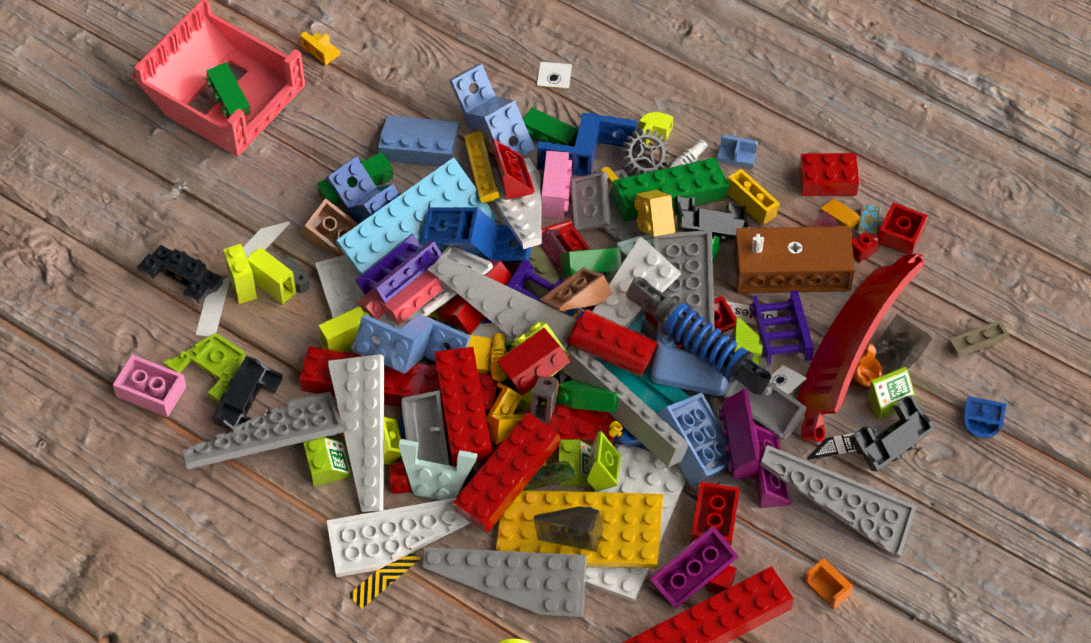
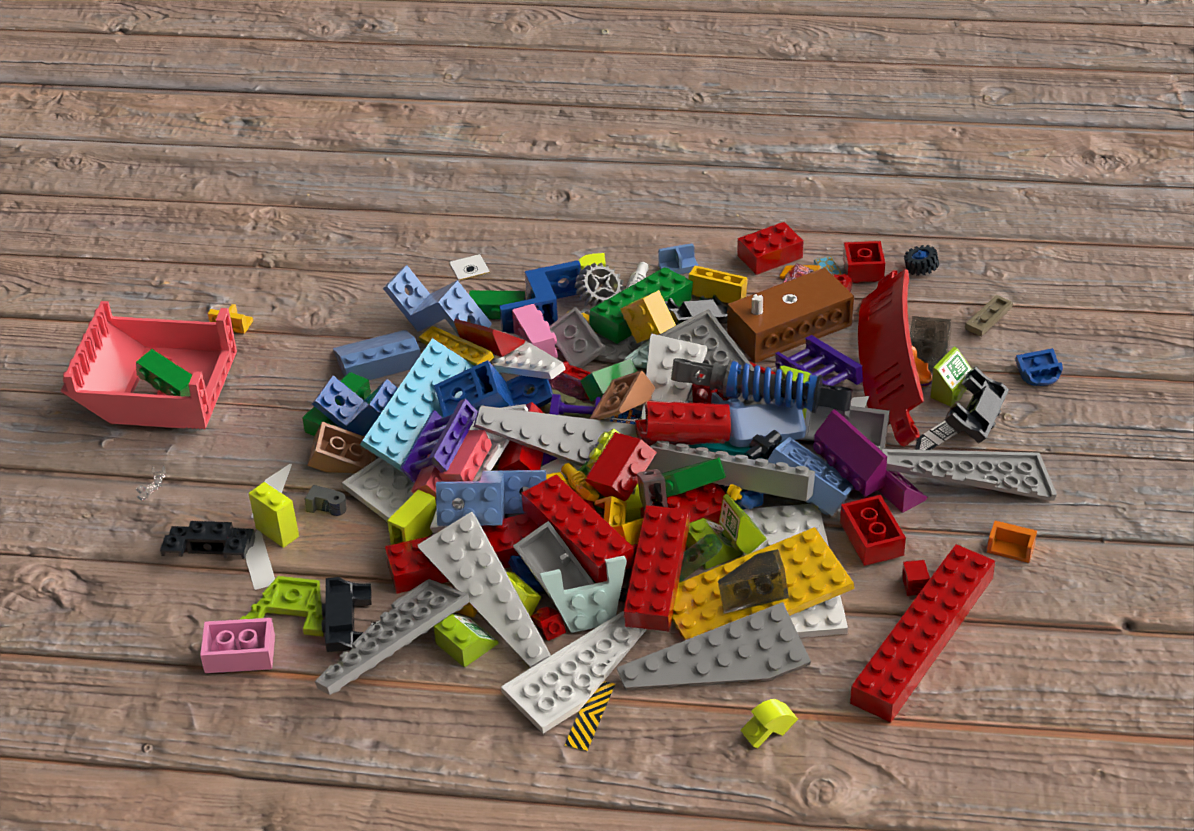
camera: 25 degrees left, 15 degrees down
(272, 275) = (311, 504): neon yellow brick -> none
(671, 392) = (763, 446): none -> black axle
(694, 567) = (888, 573): magenta slope -> none
(958, 250) = (921, 260): none -> black wheel

